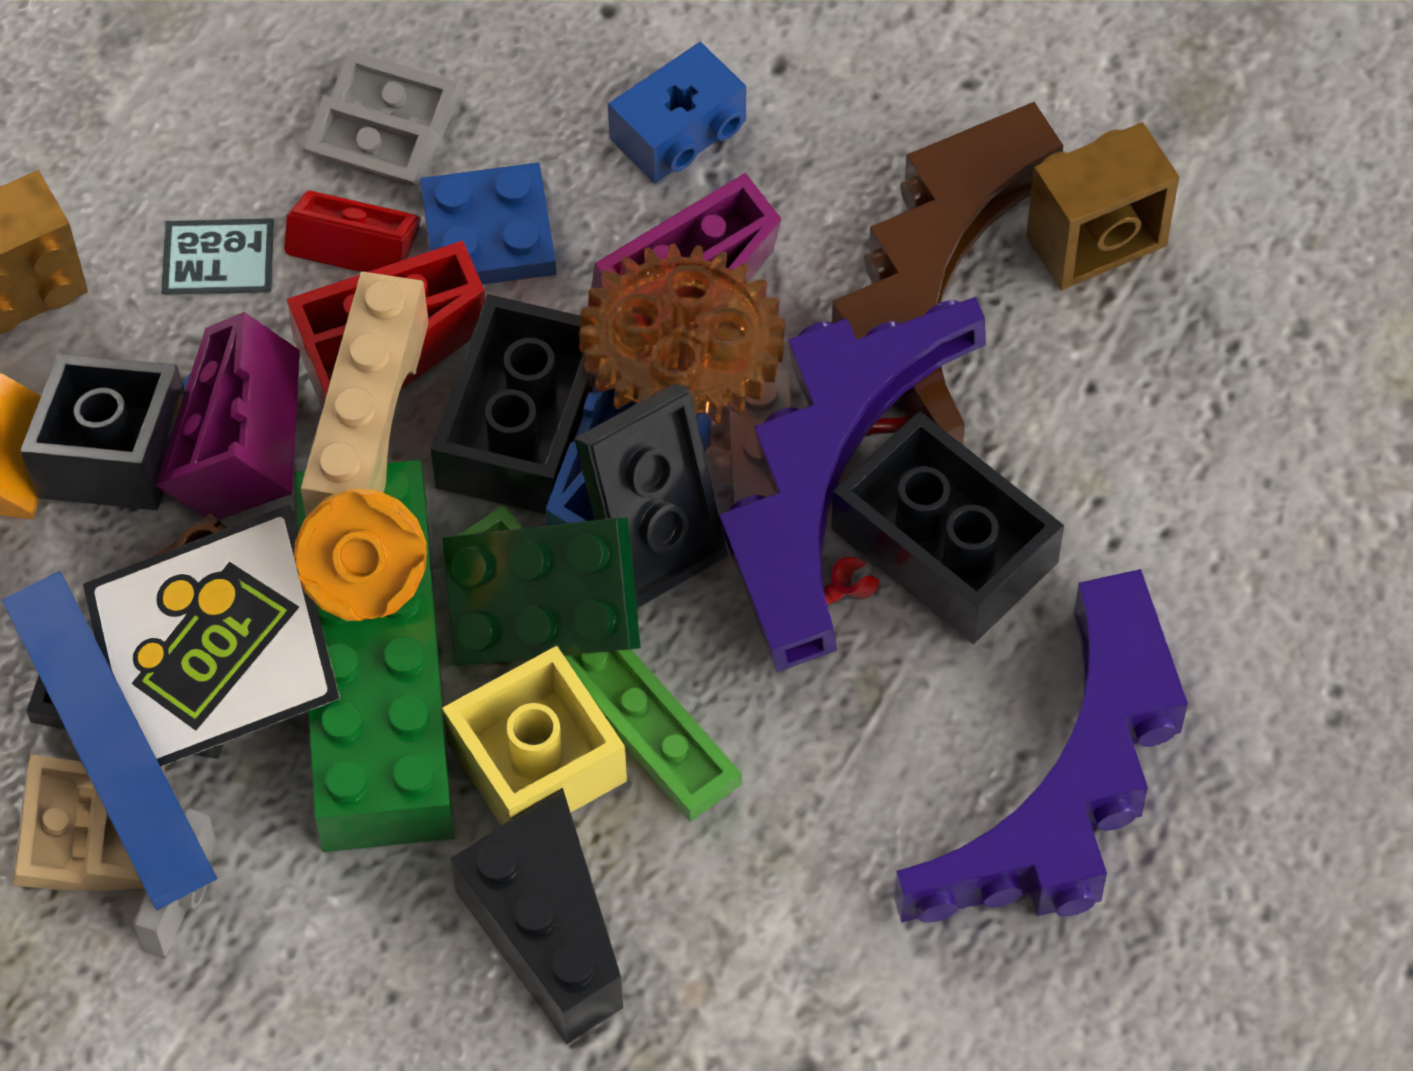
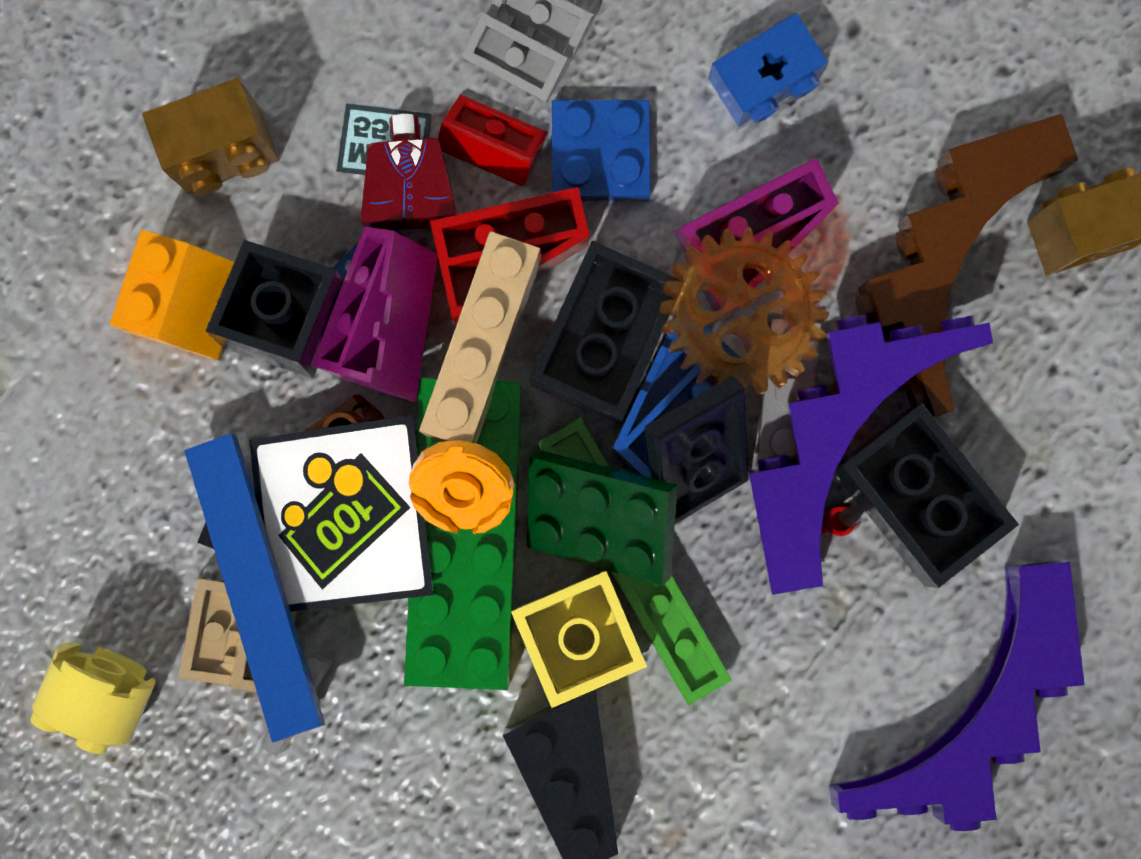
camera: 10 degrees right, 25 degrees up
(251, 272) = (406, 180): none -> dark red torso

